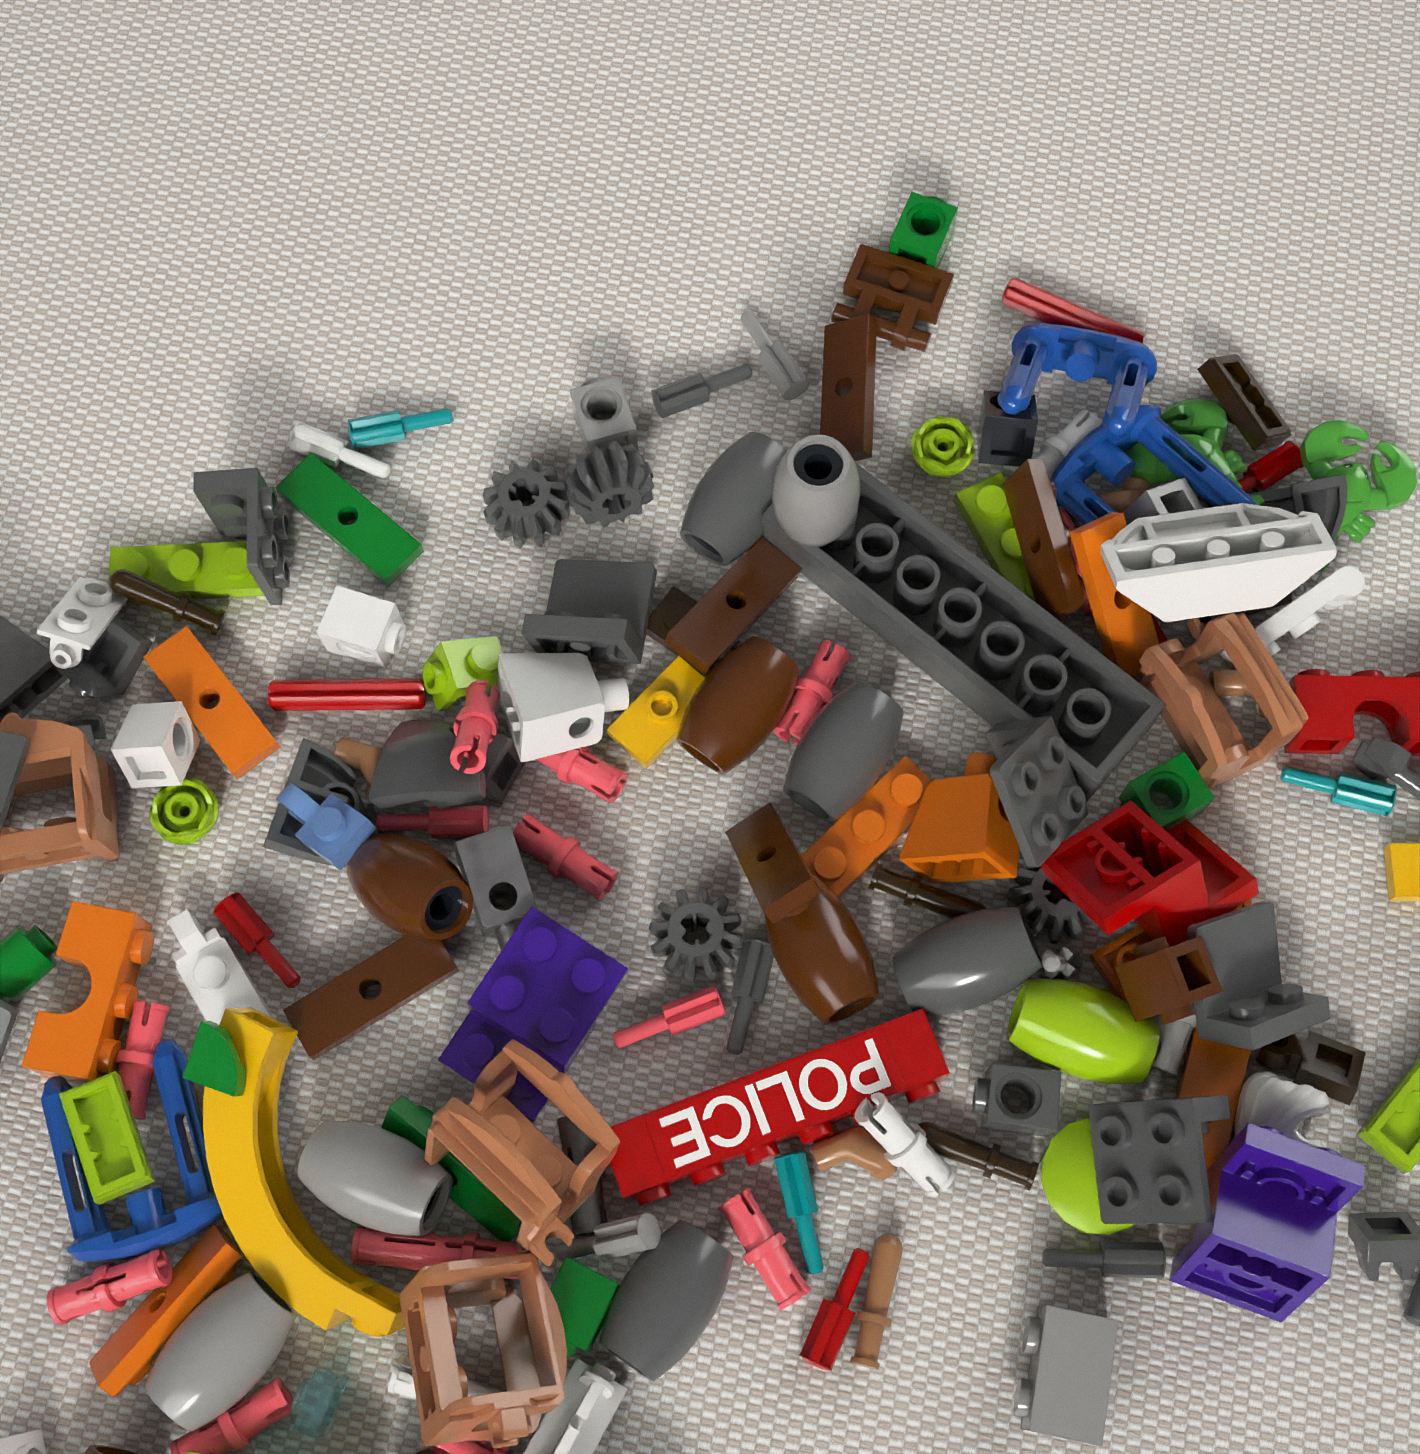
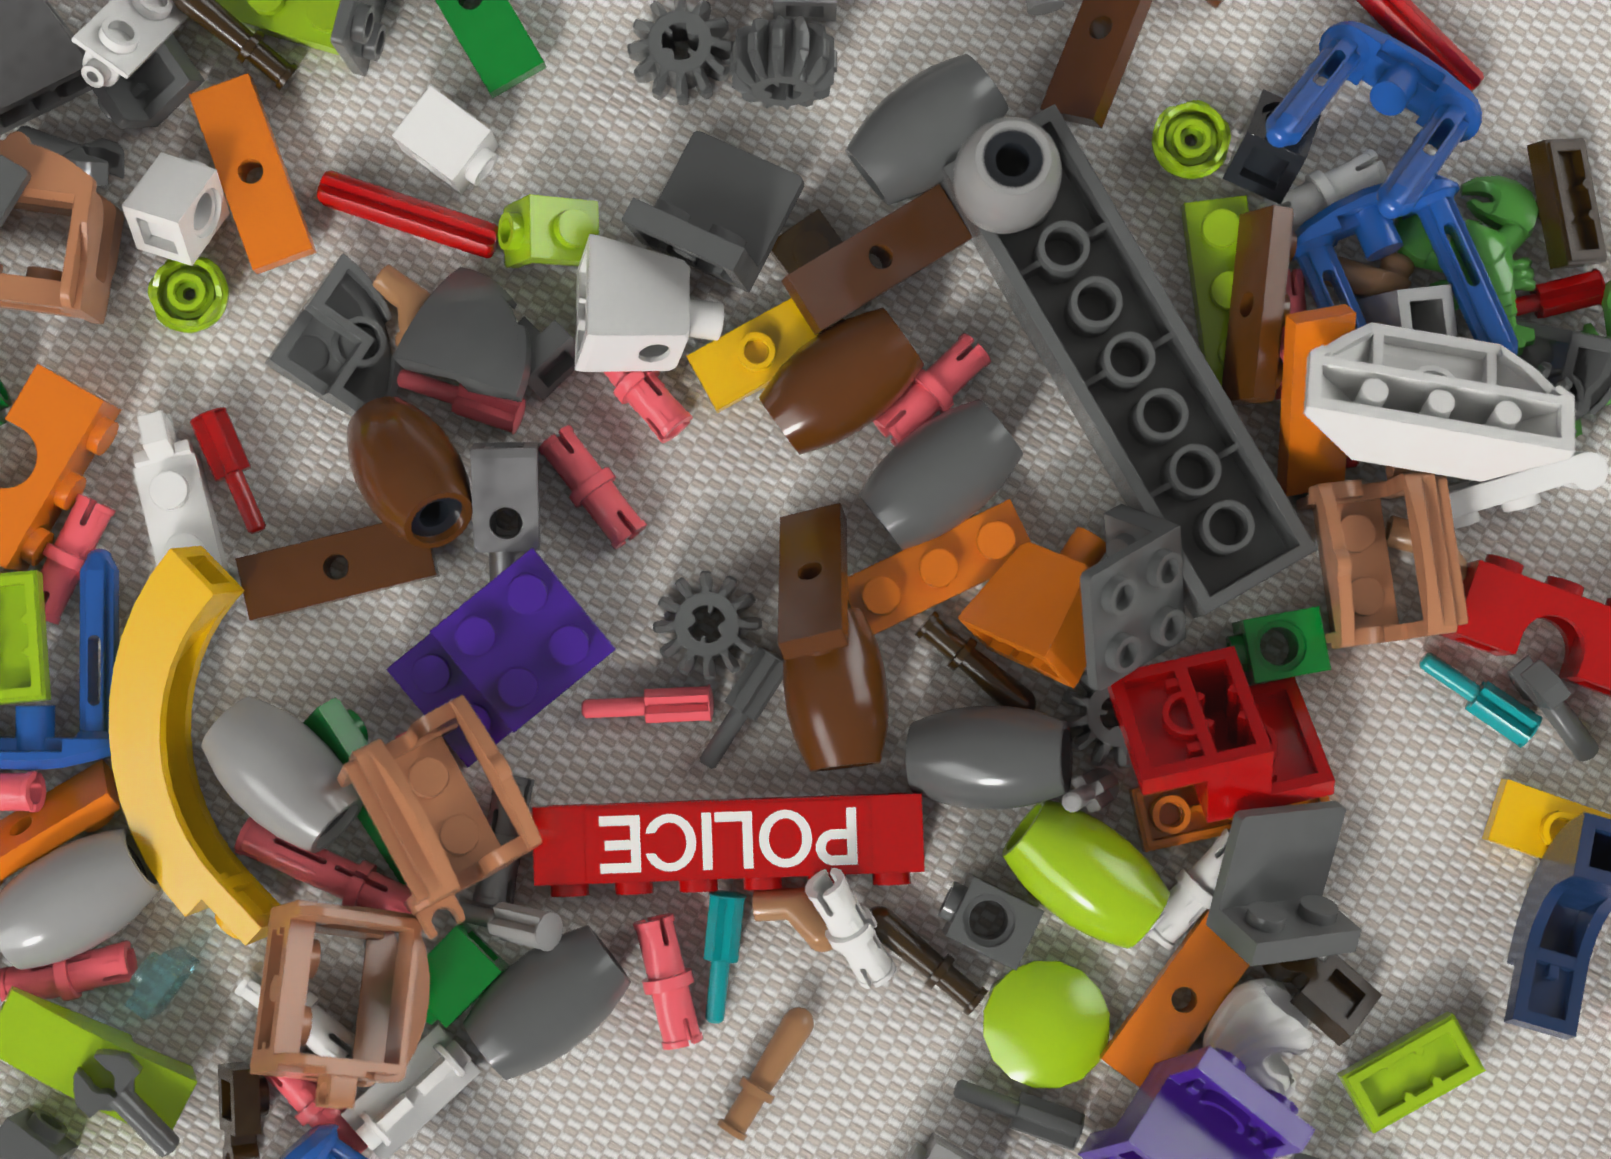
camera: 15 degrees right, 15 degrees up
(215, 1061) = (144, 603): green tile -> none
(329, 829) = (342, 373): medium blue plate -> none
(475, 727) = (536, 313): coral pin -> none
(834, 1317) = (717, 1074): red axle -> none
(1154, 1158) = (1106, 1031): dark grey bracket -> none
(1168, 979) = (1193, 858): reddish brown brick -> none

